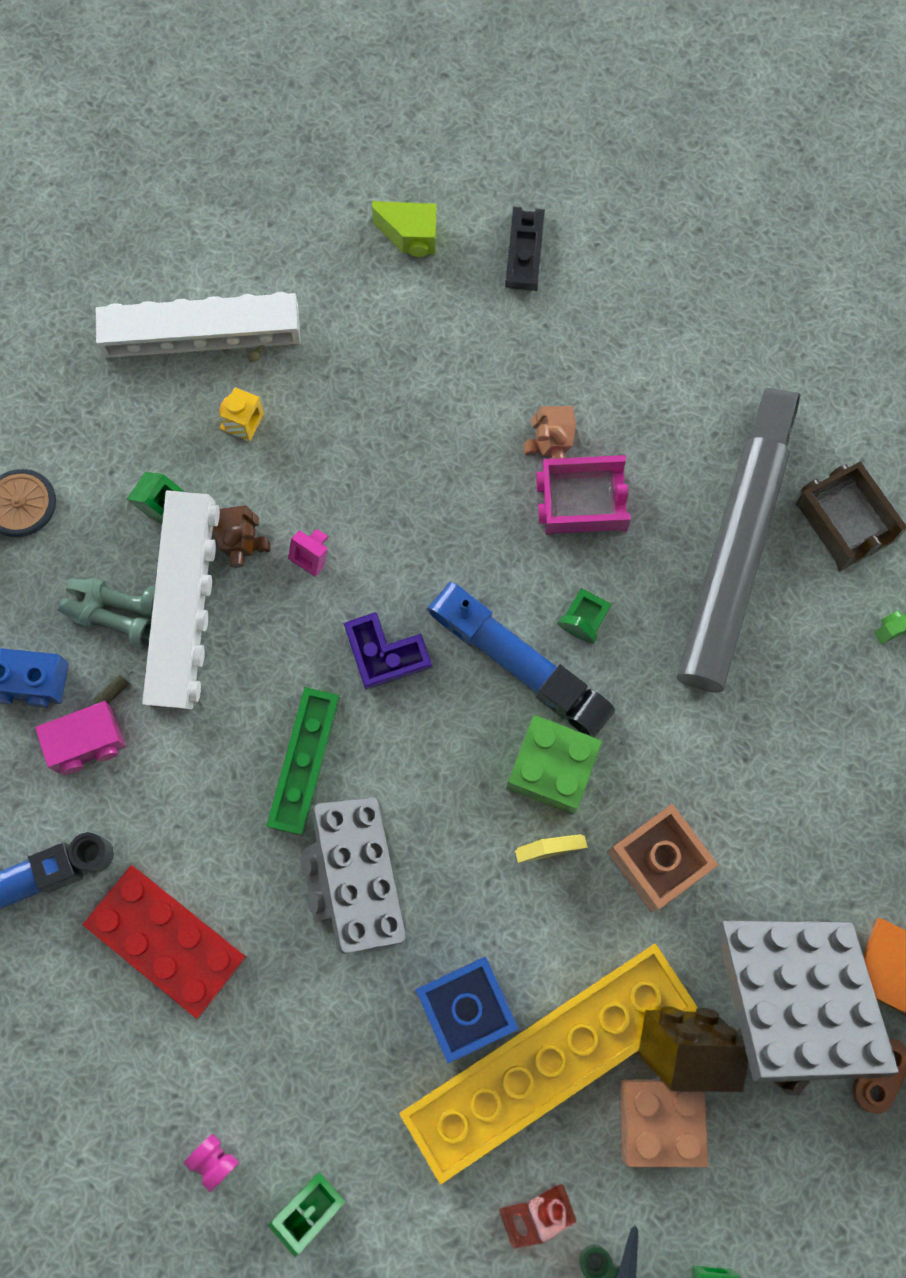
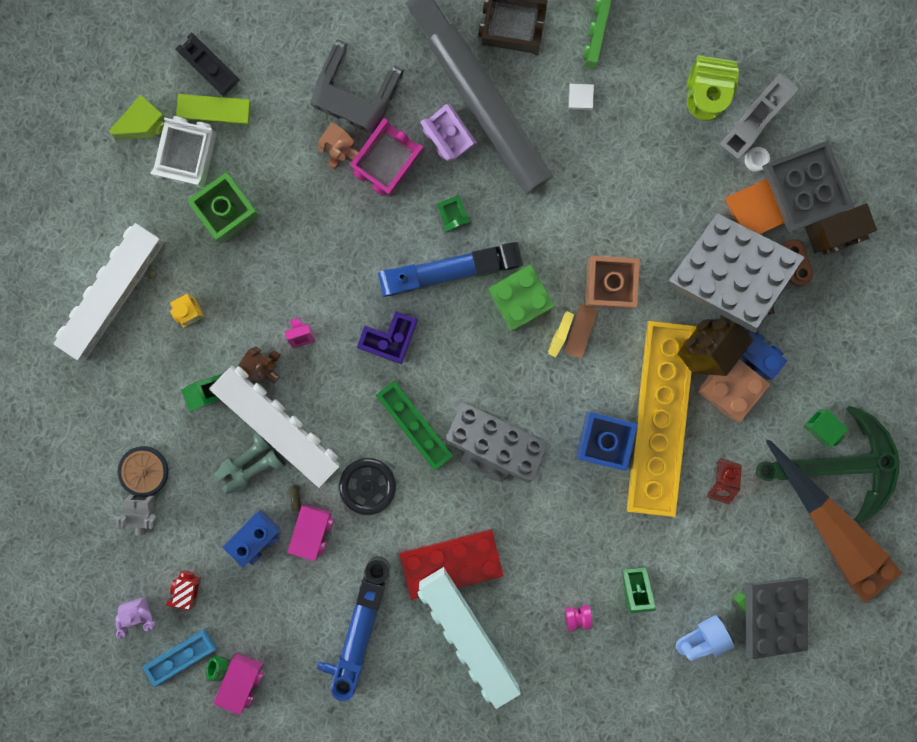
camera: 50 degrees left, 15 degrees up
(81, 1038) = (469, 638): none -> light aqua brick
(200, 791) = (387, 490): none -> black plate
(385, 369) = (223, 208): none -> bright green brick
(413, 291) = (184, 151): none -> white window
(483, 288) = (213, 109): none -> lime tile
(574, 871) = (581, 331): none -> nougat piece
(604, 413) = (347, 106): none -> dark grey connector
(668, 539) = (448, 133): none -> lavender bracket
(731, 1126) = (762, 358): none -> blue brick
(838, 653) = (581, 96): none -> white tile

